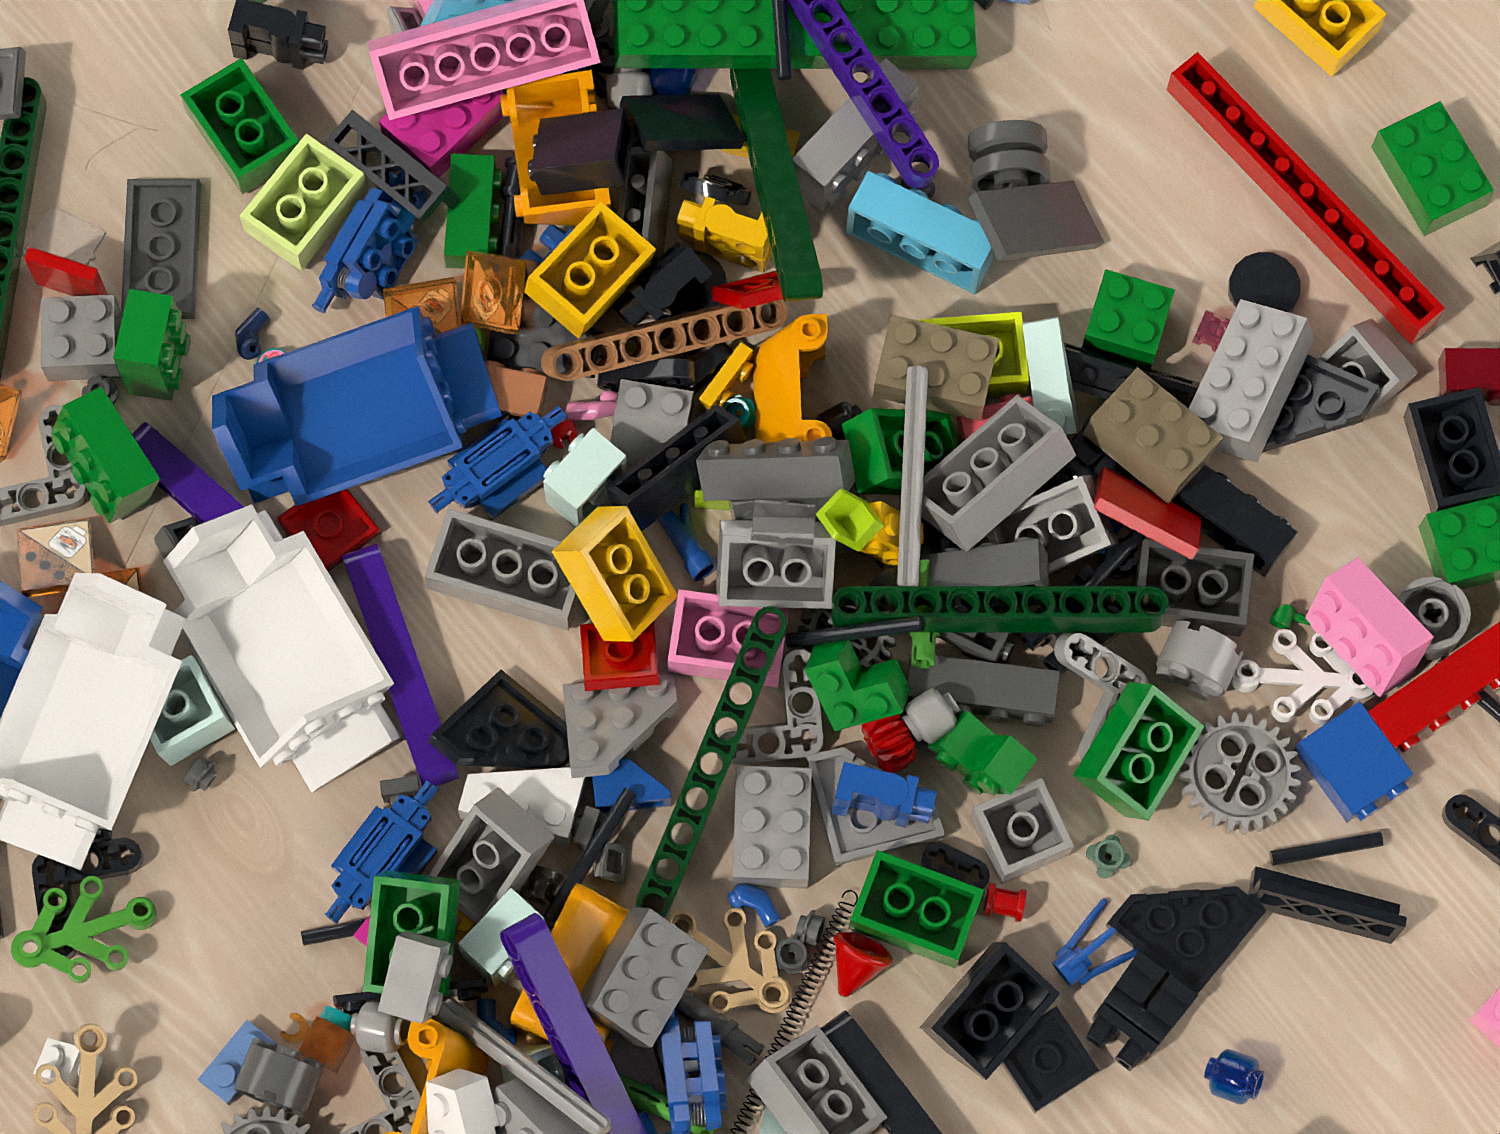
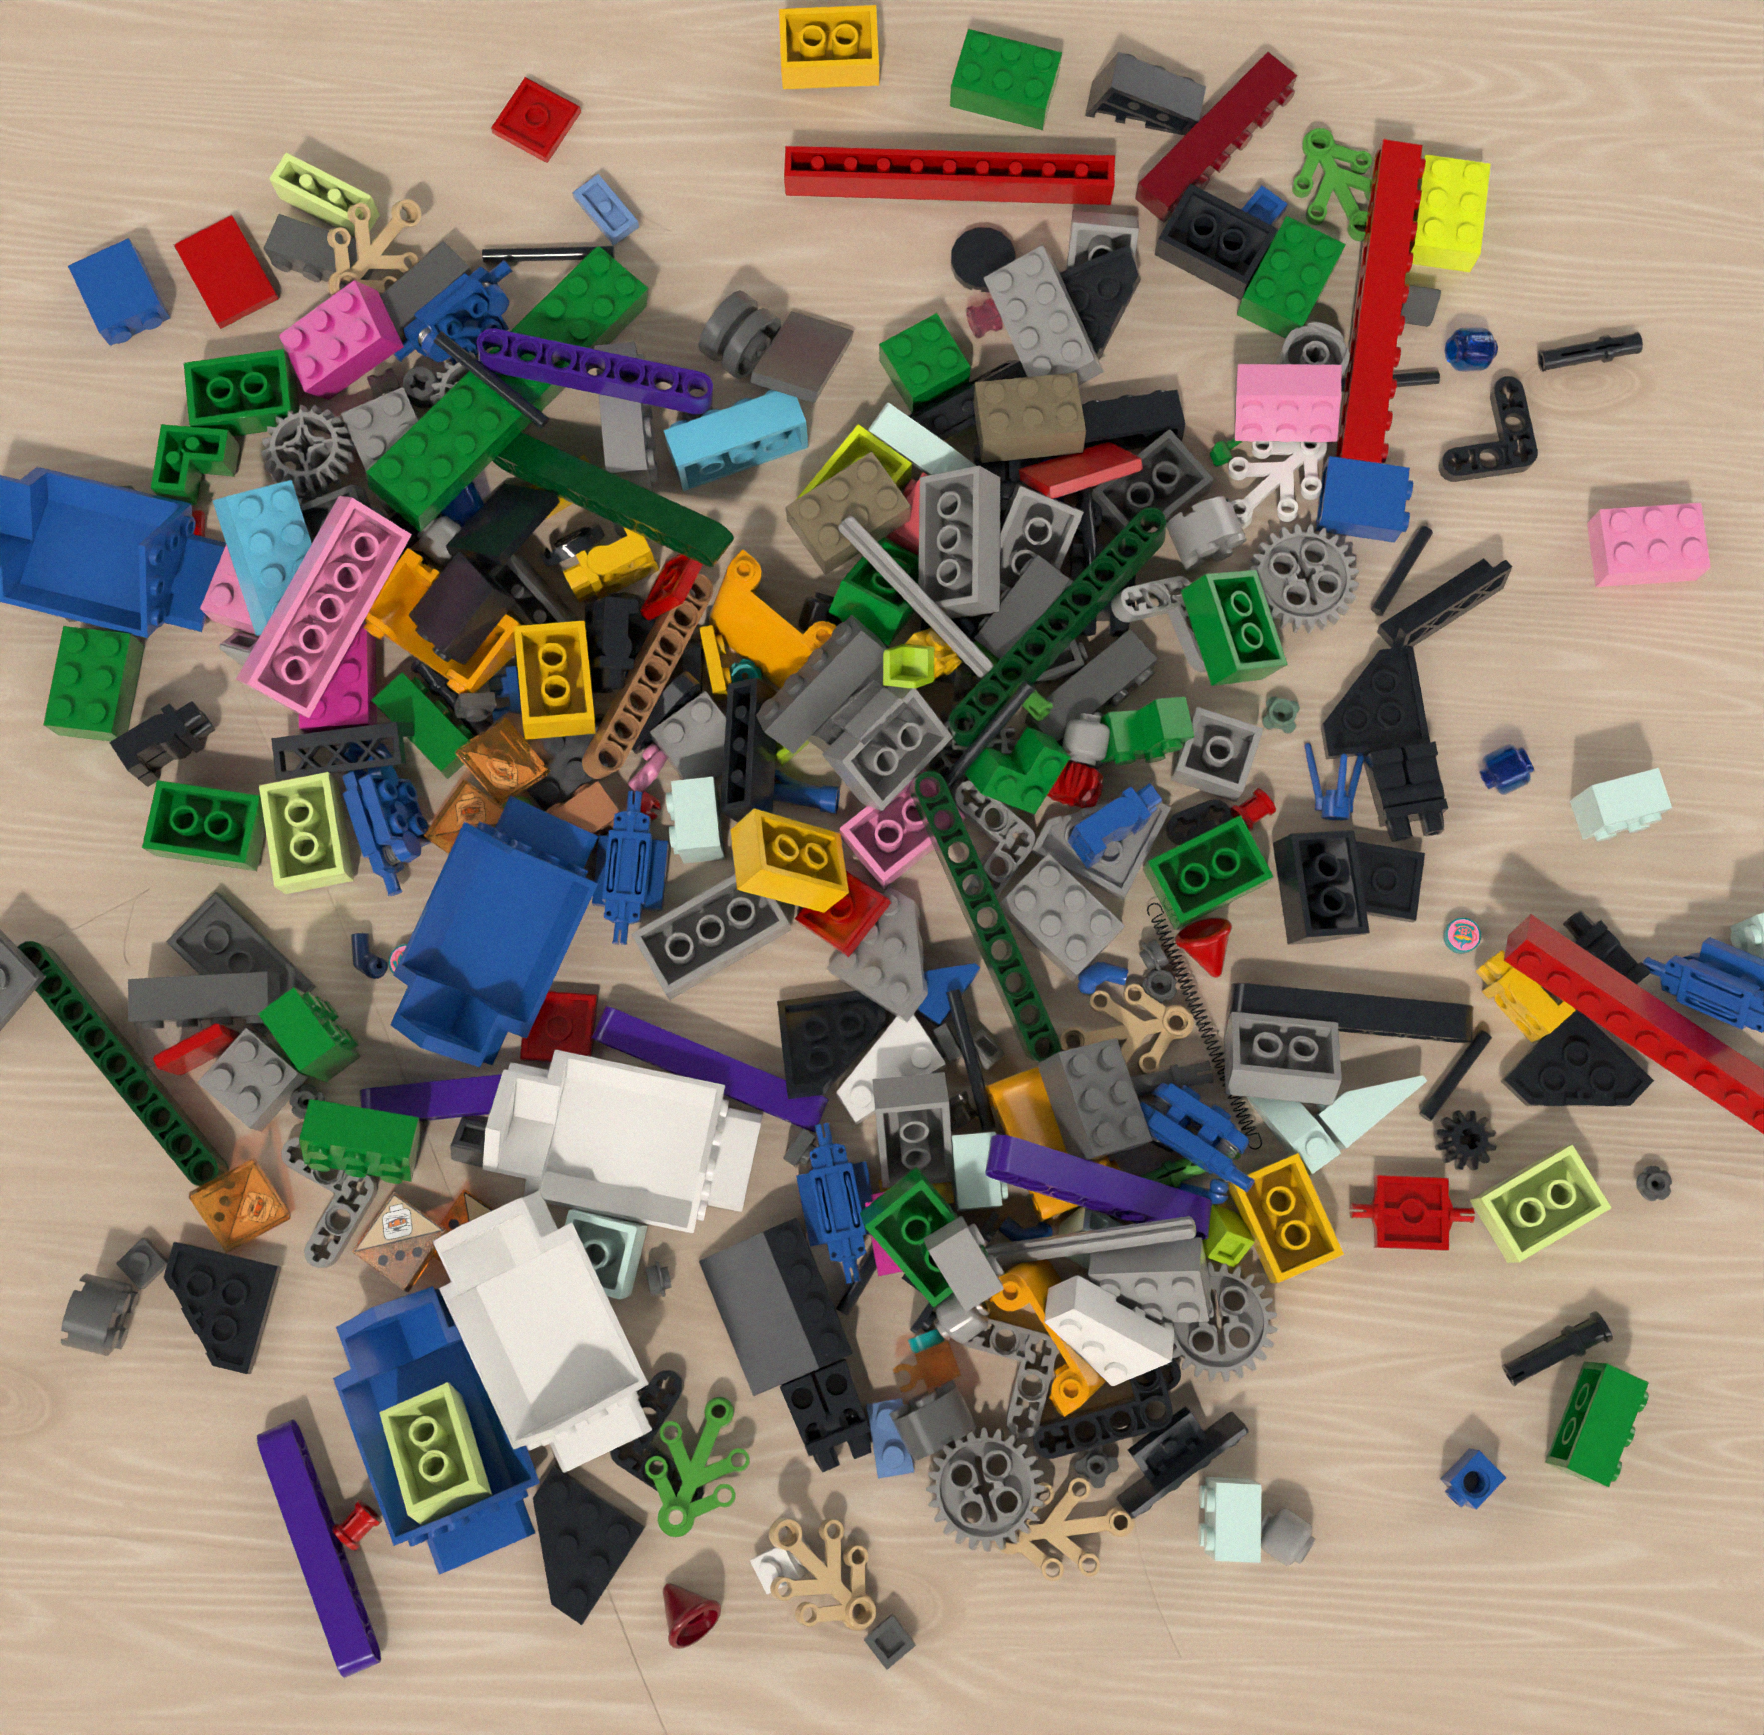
camera: 45 degrees left, 5 degrees up
(105, 241) = (201, 998): none -> dark grey brick
(213, 994) = (829, 1425): none -> black hips
(262, 883) = (775, 1306): none -> slope
(518, 233) = (475, 706): none -> dark grey plate

